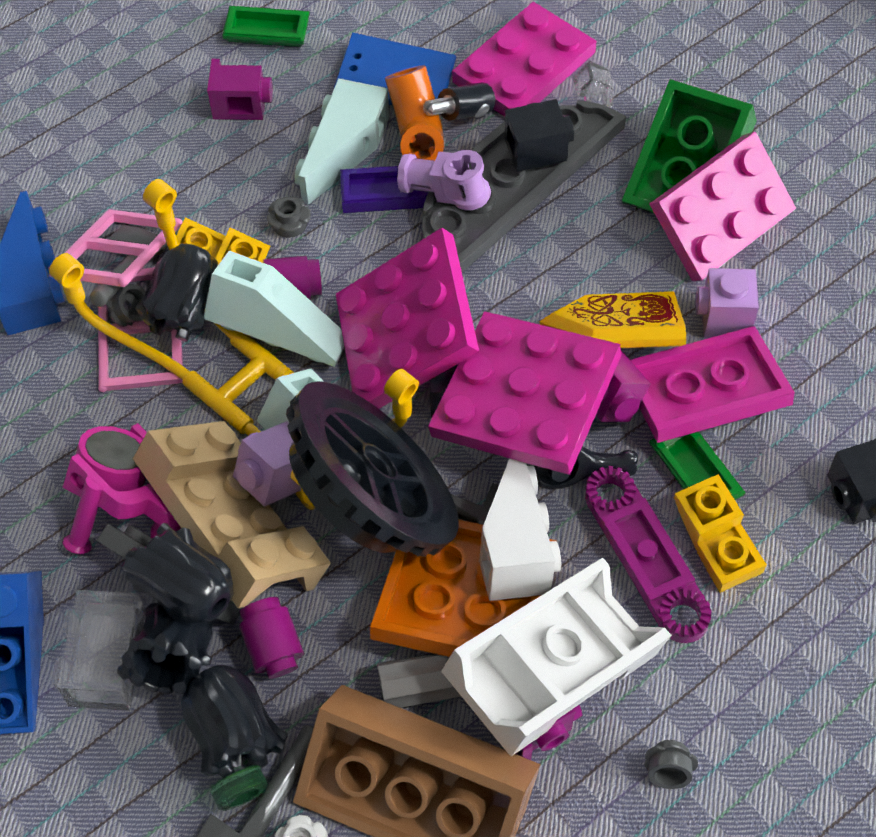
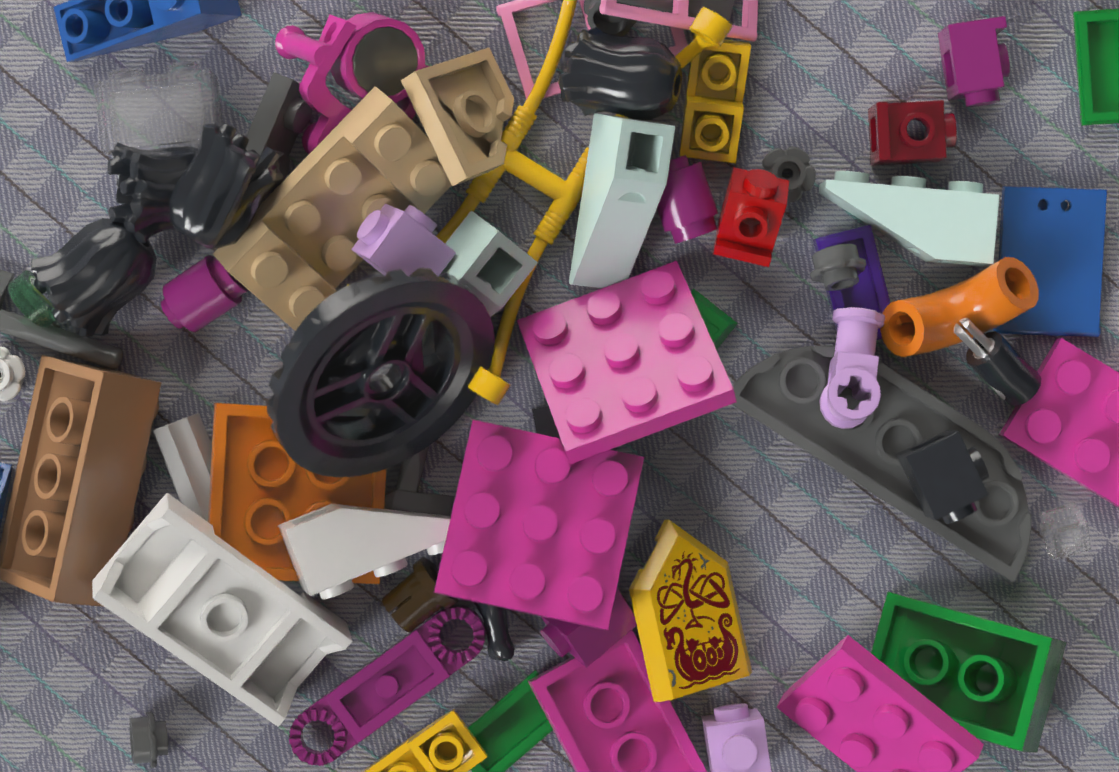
camera: 75 degrees right, 30 degrees up
(177, 403) = (463, 112): none -> tan plate
(278, 127) = (889, 134): none -> dark red brick
(312, 230) = (751, 216): none -> red brick
(366, 181) = (837, 266): none -> dark grey plate
(566, 506) = (415, 597): none -> dark brown bush

